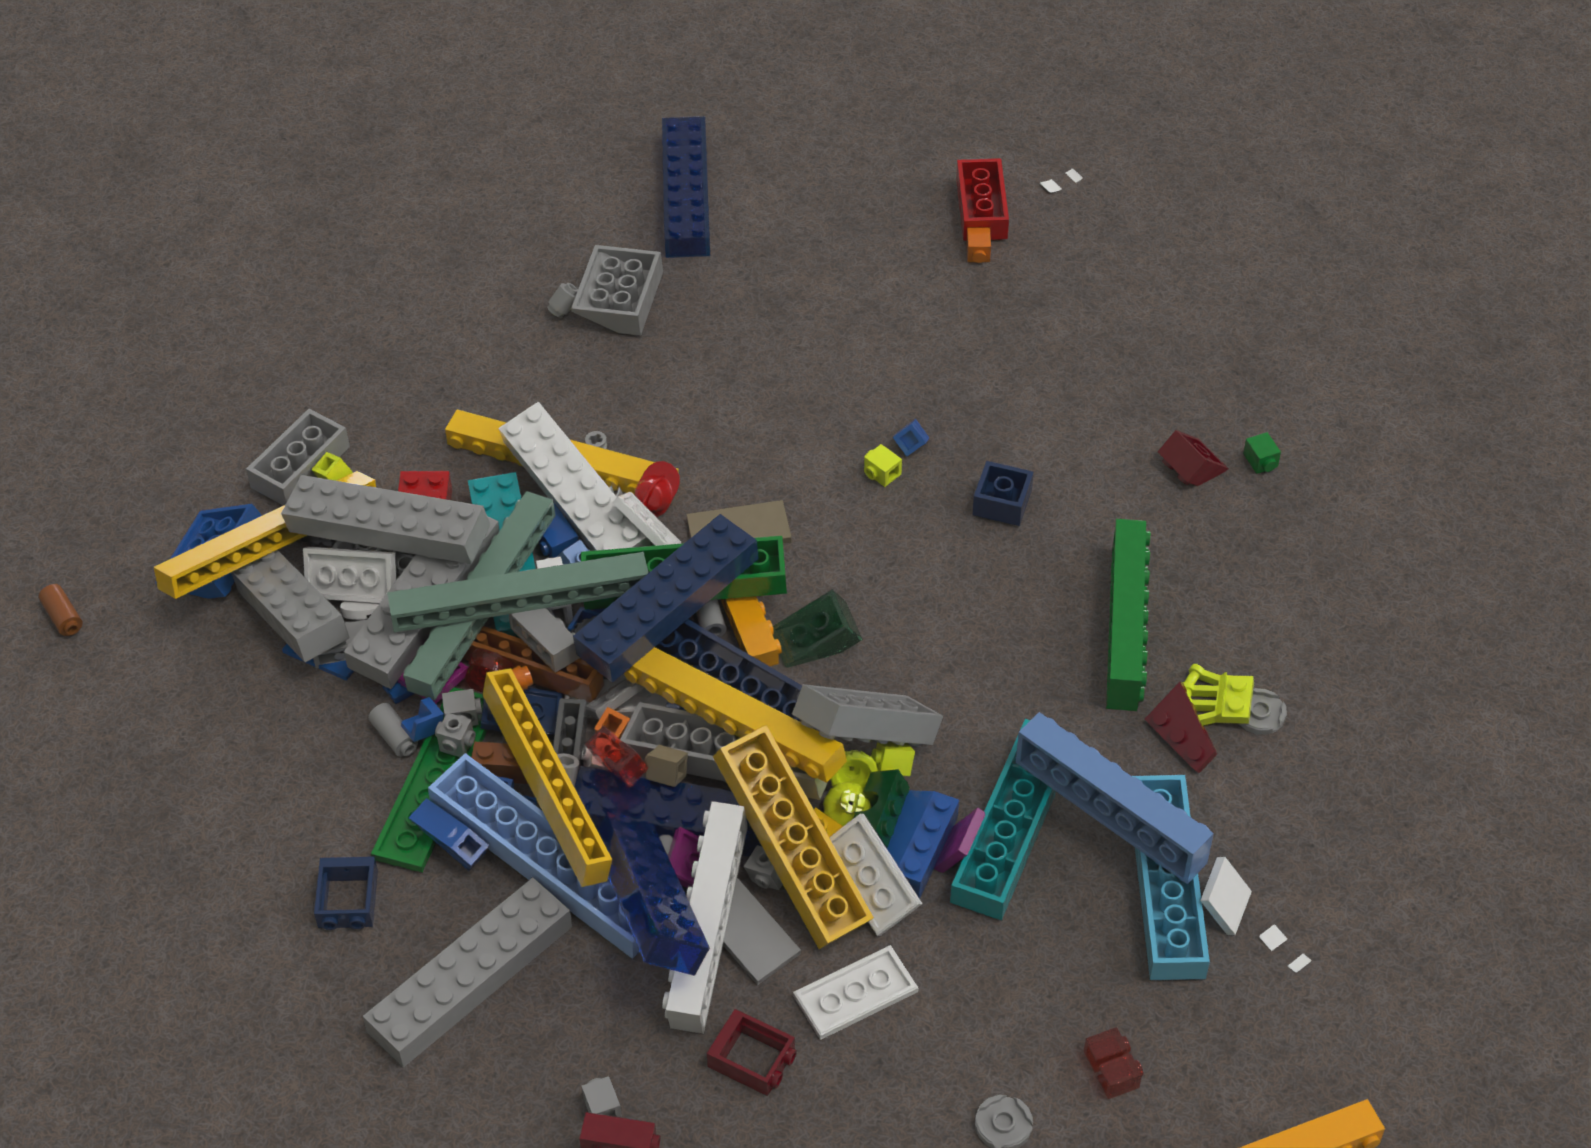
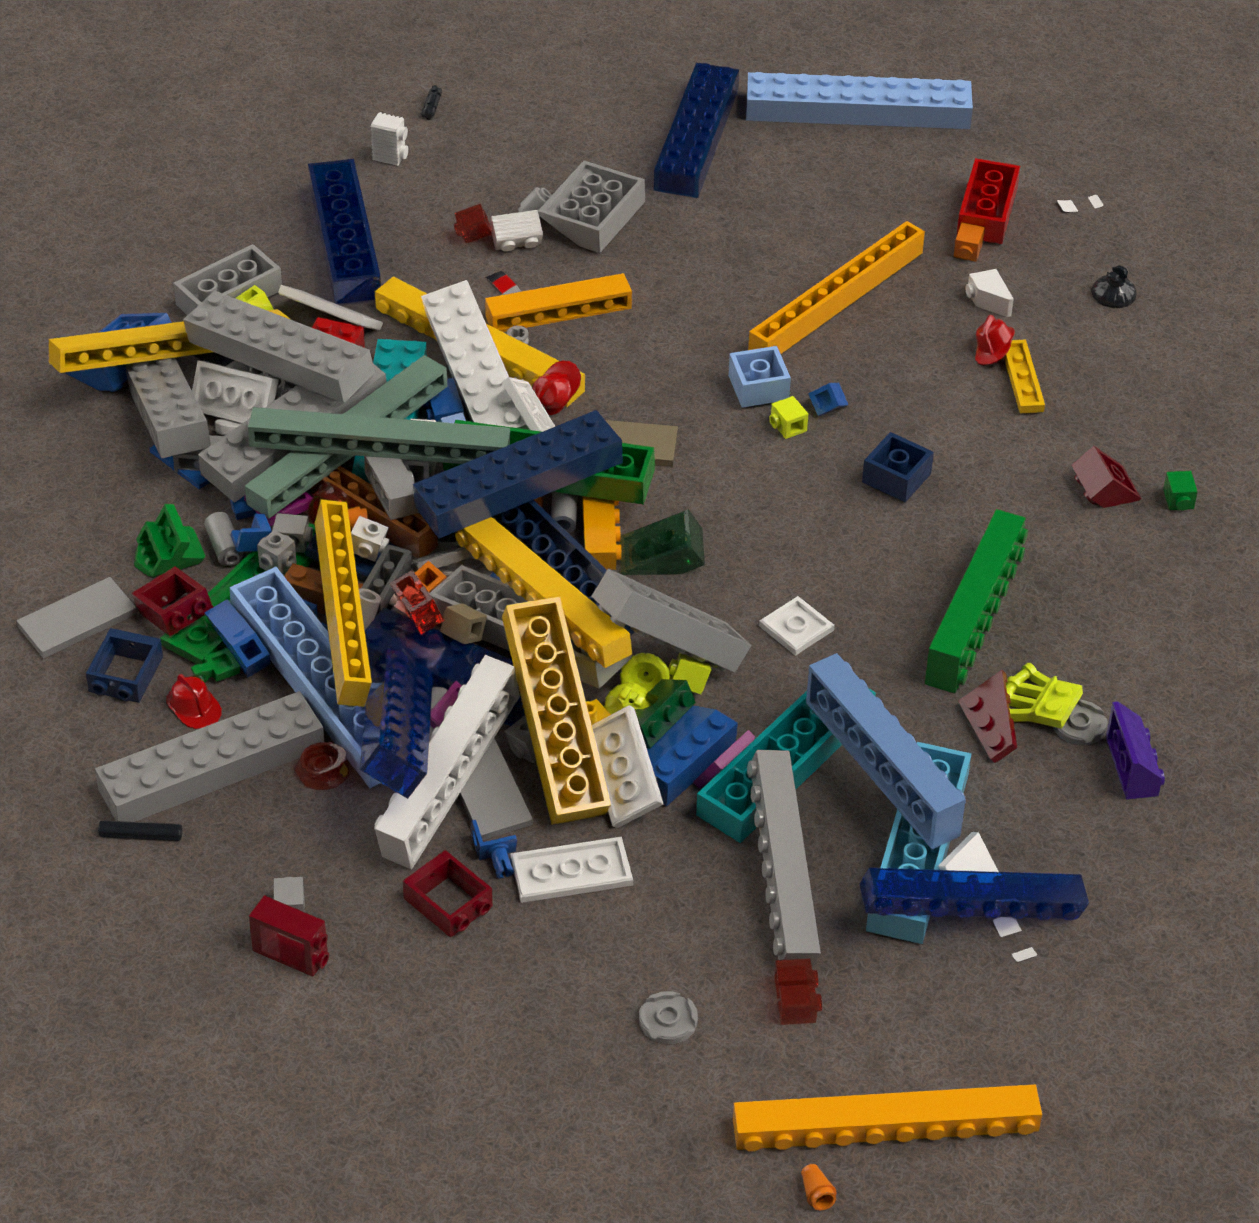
camera: 15 degrees right, 5 degrees down
(277, 851) = (76, 617): none -> light grey tile
(340, 752) = (167, 544): none -> green piece
(357, 799) = (164, 590): none -> dark red window
(390, 371) = (344, 231): none -> clear blue brick
(398, 264) = (389, 139): none -> white brick
(407, 457) = (330, 308): none -> white tile
(421, 213) = (431, 102): none -> black axle
(426, 1066) = (140, 830): none -> black axle
(427, 914) = (193, 702): none -> red piece
(437, 867) = (217, 665): none -> green plate
(510, 334) = (472, 223): none -> clear red brick
(541, 695) = (369, 538): none -> white brick
(555, 331) = (516, 230): none -> white brick
(561, 389) = (503, 283): none -> sticker
(576, 940) = (323, 766): none -> clear red hat
(623, 398) = (559, 302): none -> light orange brick
(779, 993) = (495, 849): none -> blue bracket
(824, 122) = (859, 100): none -> light blue brick
(841, 430) = (759, 376): none -> light blue brick
(878, 327) = (839, 289): none -> light orange brick
(968, 679) = (796, 625): none -> white tile
(1017, 292) = (990, 292): none -> white slope
(1039, 342) = (993, 340): none -> red piece
(1056, 930) = (784, 856): none -> light grey brick
(1078, 370) = (1024, 378): none -> yellow plate
(1126, 262) = (1114, 289): none -> black hair
(1242, 921) = (973, 893): none -> clear blue brick
(1322, 734) = (1133, 754): none -> dark purple slope

